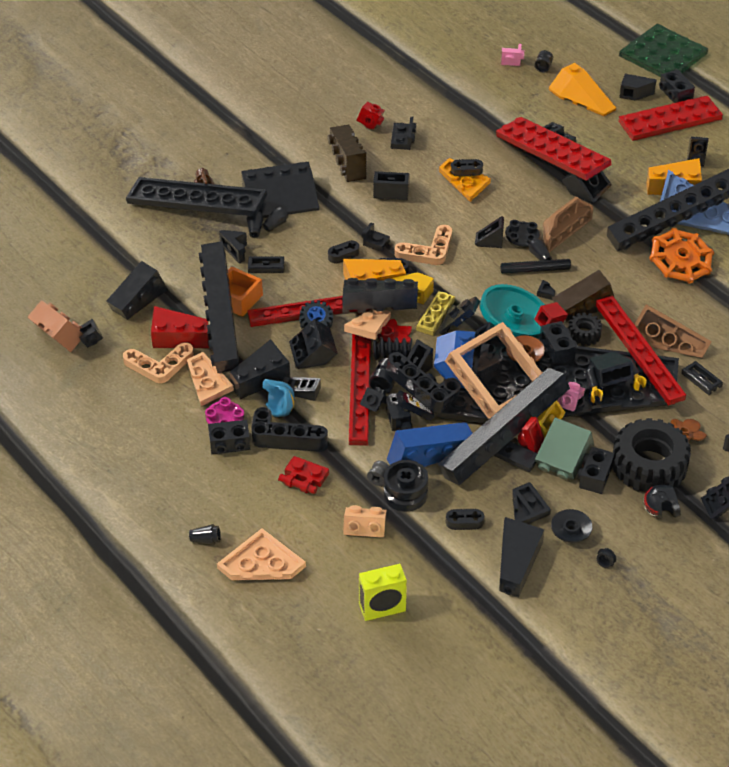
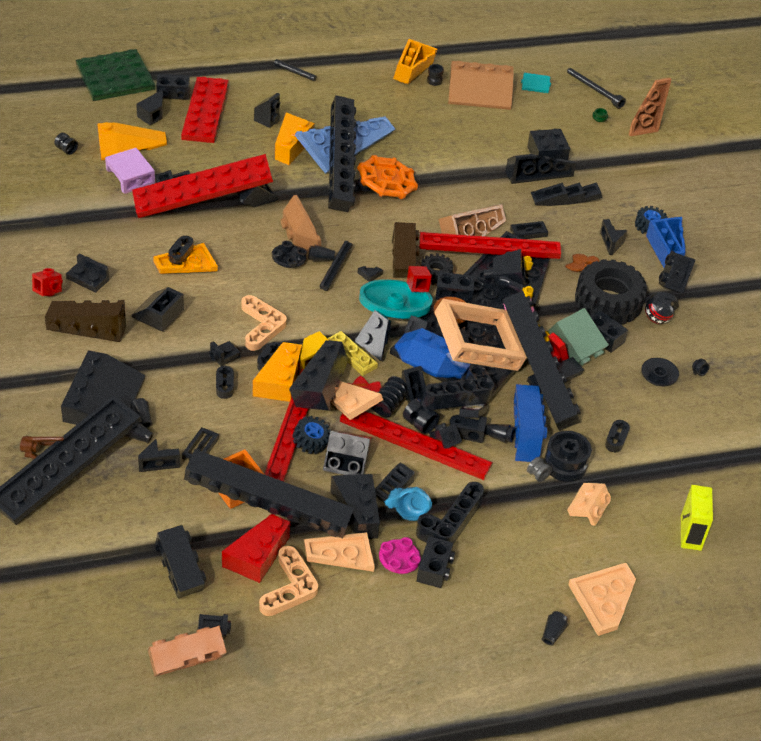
camera: 70 degrees left, 0 degrees up
(307, 472) = (507, 521): red plate -> none
(491, 235) = (280, 272): black slope -> none
(512, 56) = (40, 158): bright pink bracket -> none
(519, 551) = (678, 418): black slope -> none
(528, 504) = (623, 389): black wing -> none
(542, 105) = (130, 169): none -> lavender panel

